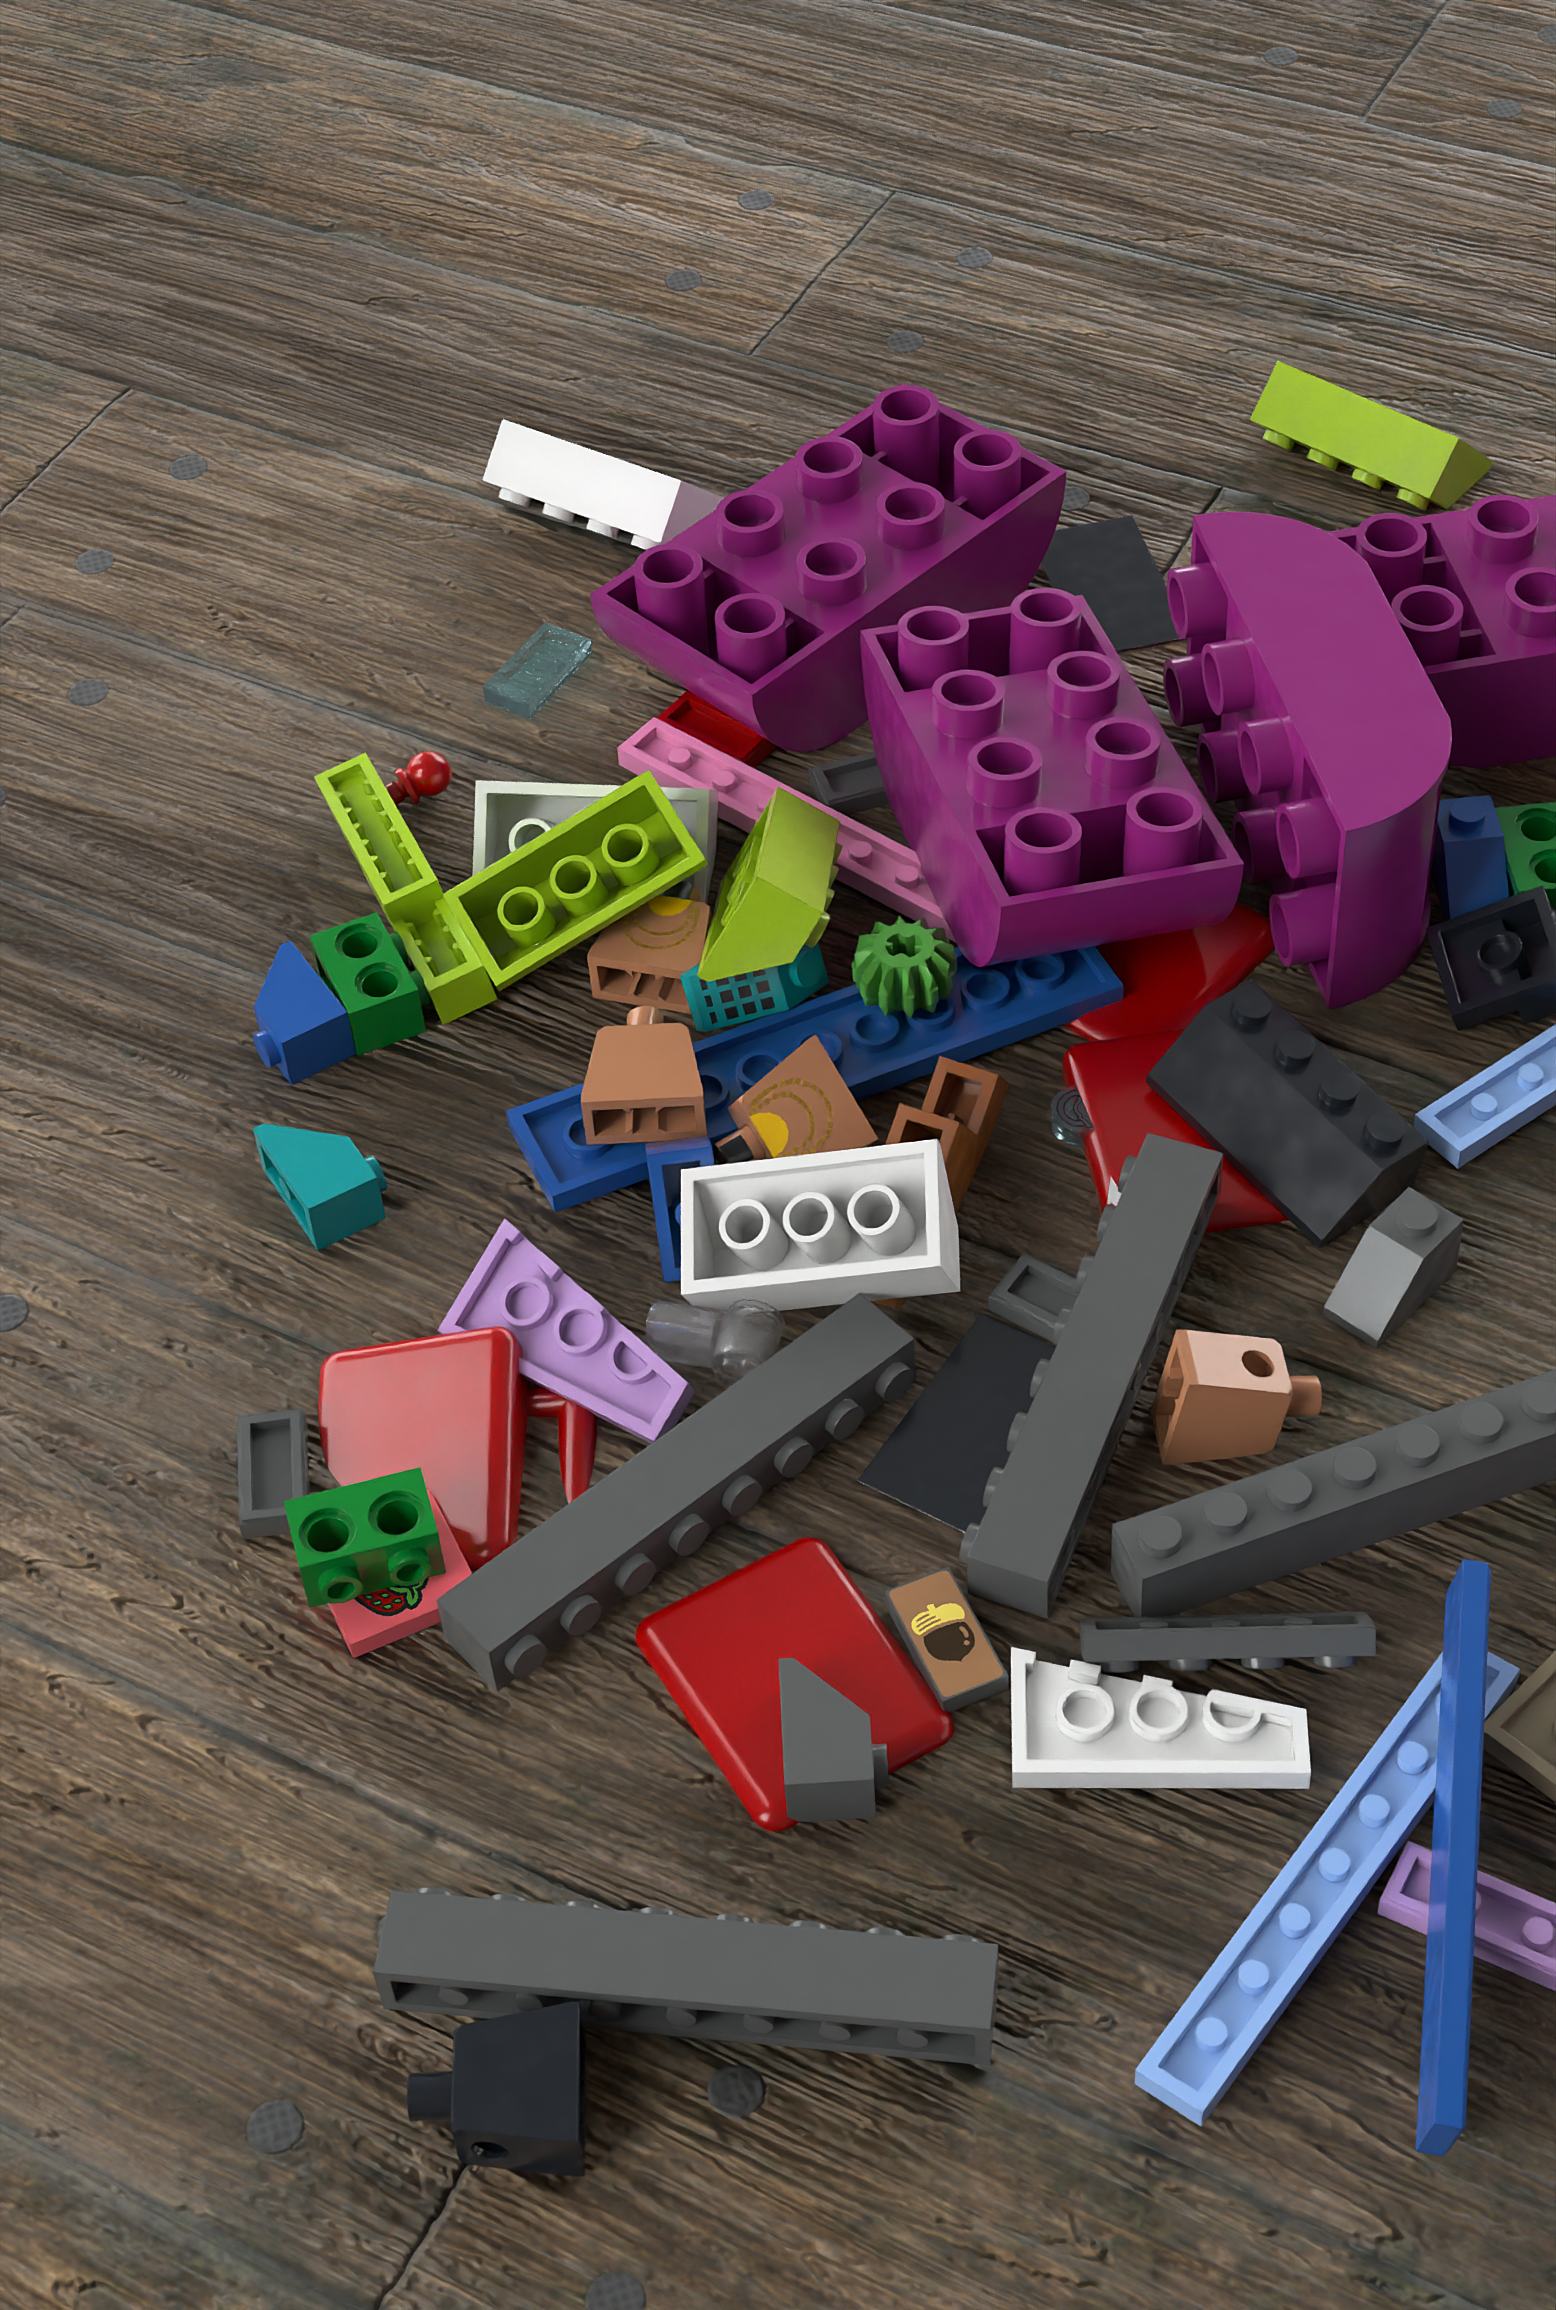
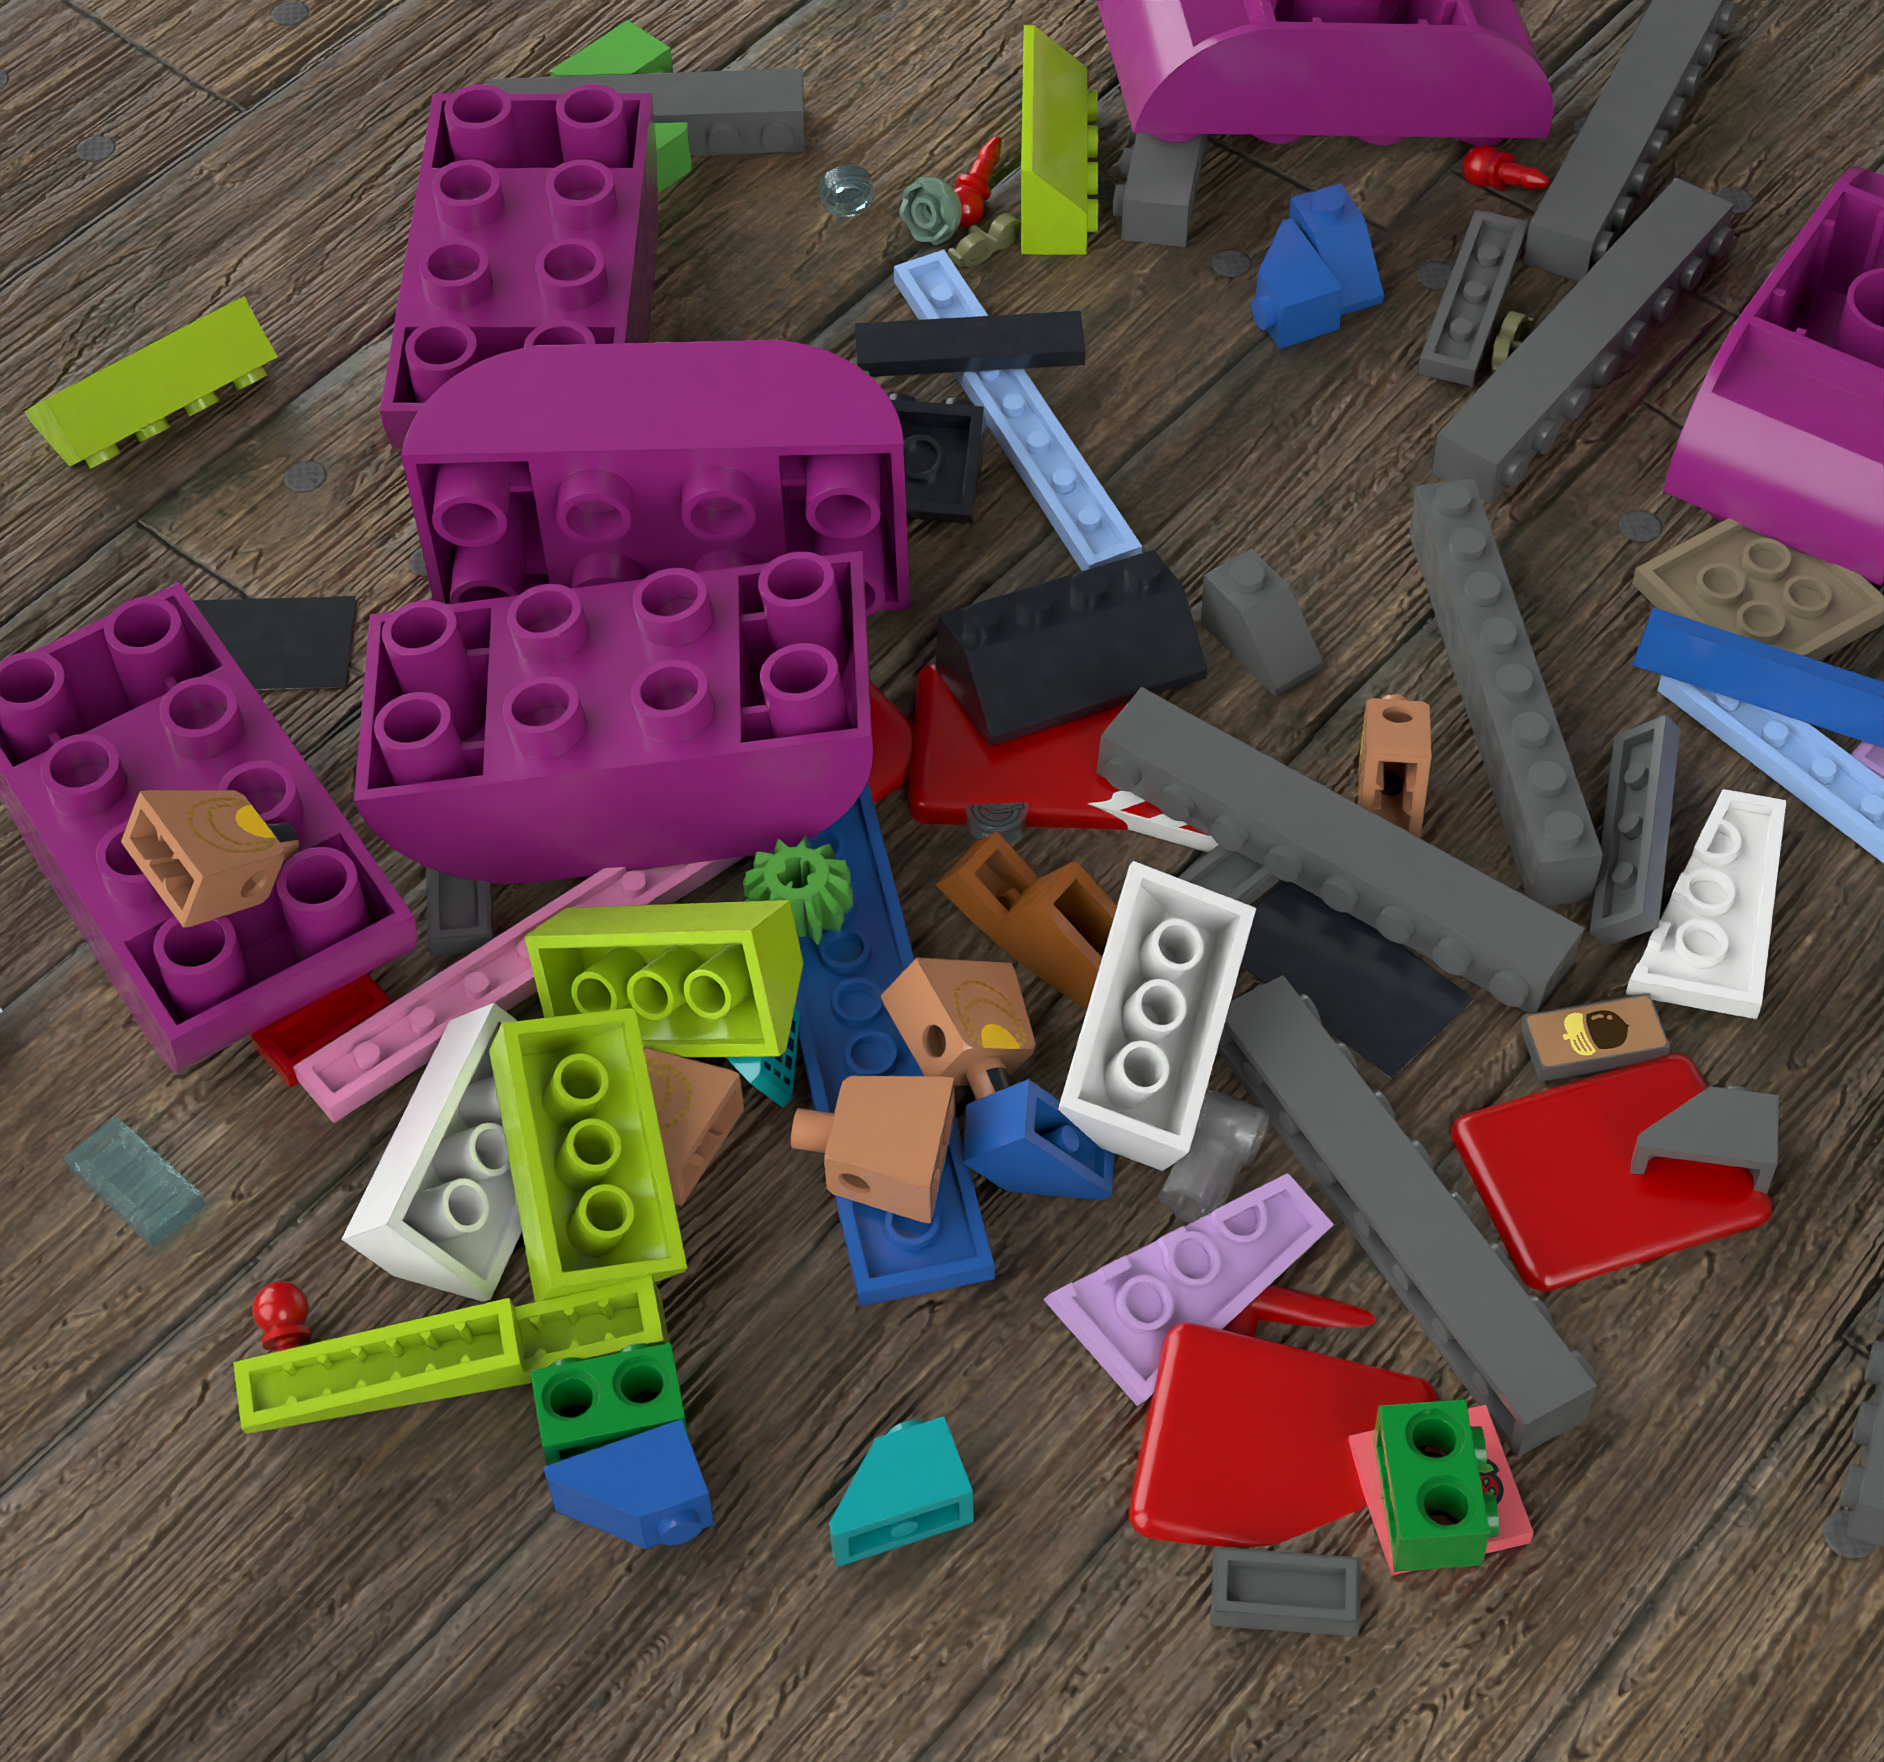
camera: 80 degrees left, 5 degrees up
(743, 539) = (206, 851): none -> nougat torso

